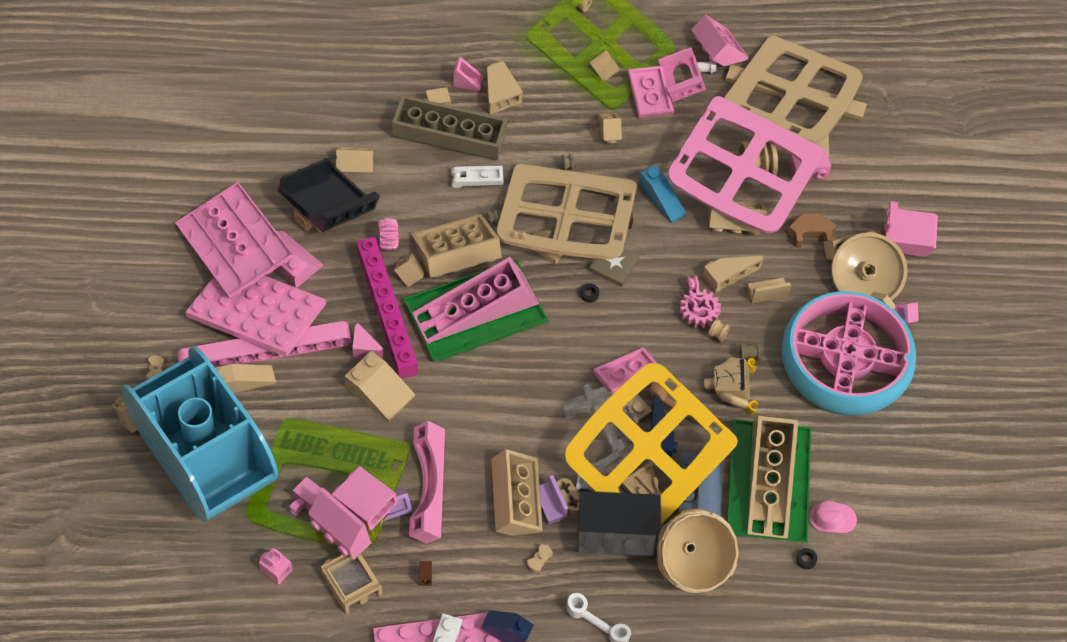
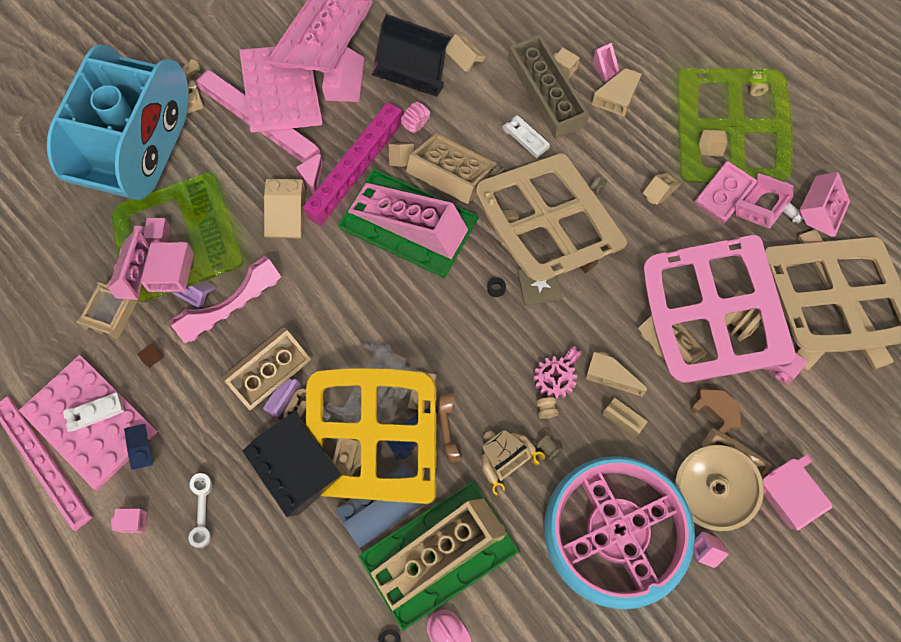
camera: 60 degrees right, 10 degrees up
(246, 377) = (219, 121): tan slope -> none
(275, 565) = (82, 254): bright pink brick -> none
(544, 553) = (234, 426): tan piece -> none
(618, 371) = (446, 367): bright pink tile -> none
(661, 193) = (634, 275): dark azure slope -> none
(712, 552) = (294, 552): tan rock -> none
(884, 298) = (697, 523): tan tile -> none

